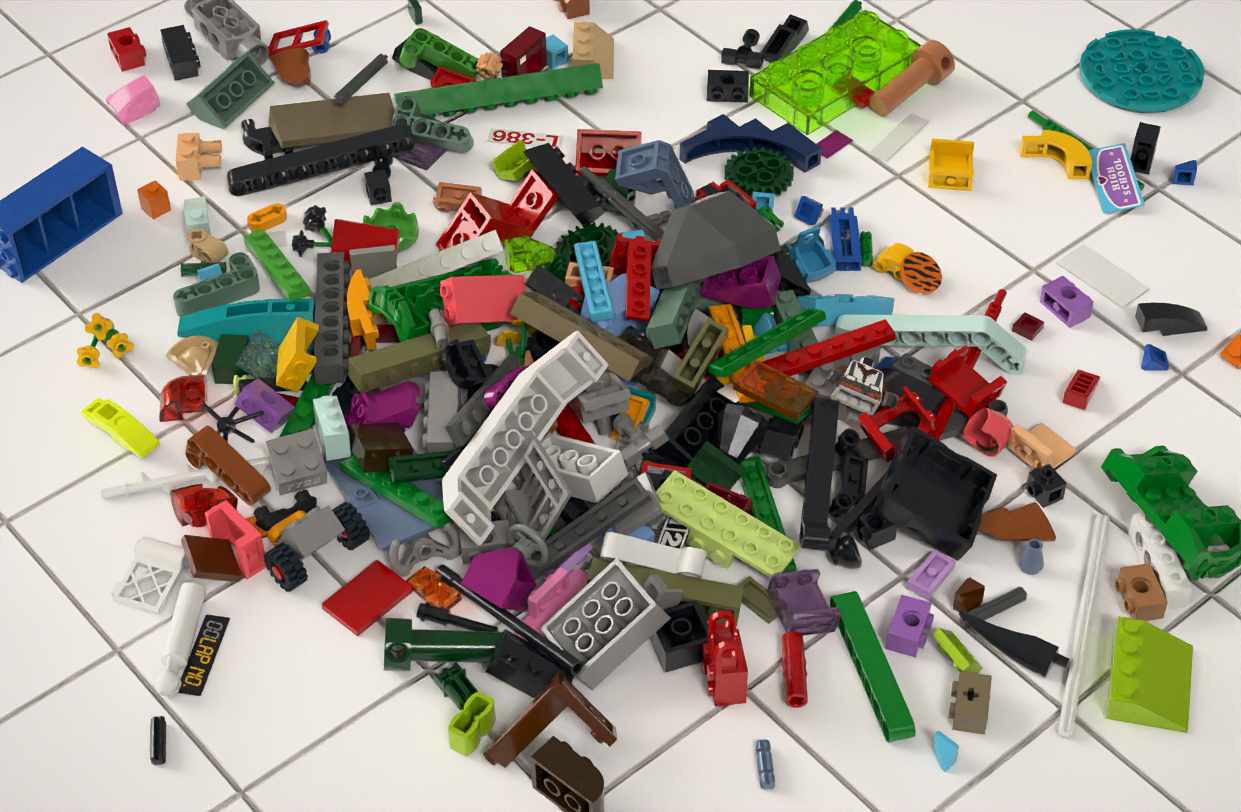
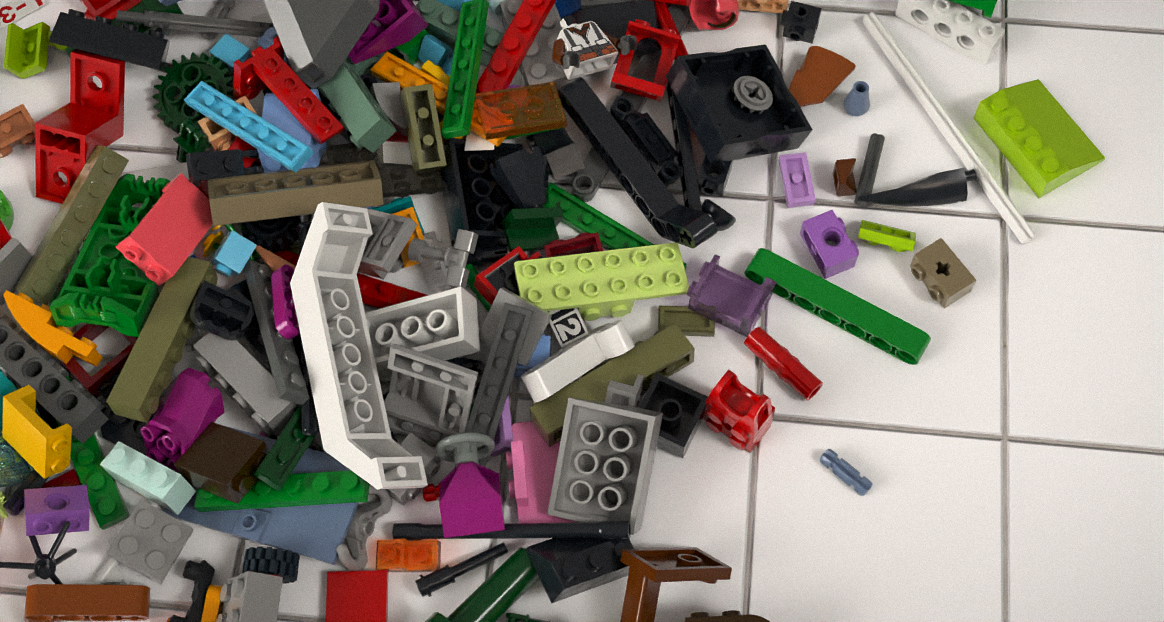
camera: 40 degrees left, 20 degrees up
(439, 328) = (163, 296): light grey pin -> none
(508, 343) = (232, 254): none -> medium azure brick
(525, 253) = (143, 138): clear neon green brick -> none
(945, 750) = (965, 335): medium azure slope -> none
(959, 493) = (747, 84): none -> light grey gear
(1141, 592) = (959, 51): medium nougat brick -> none

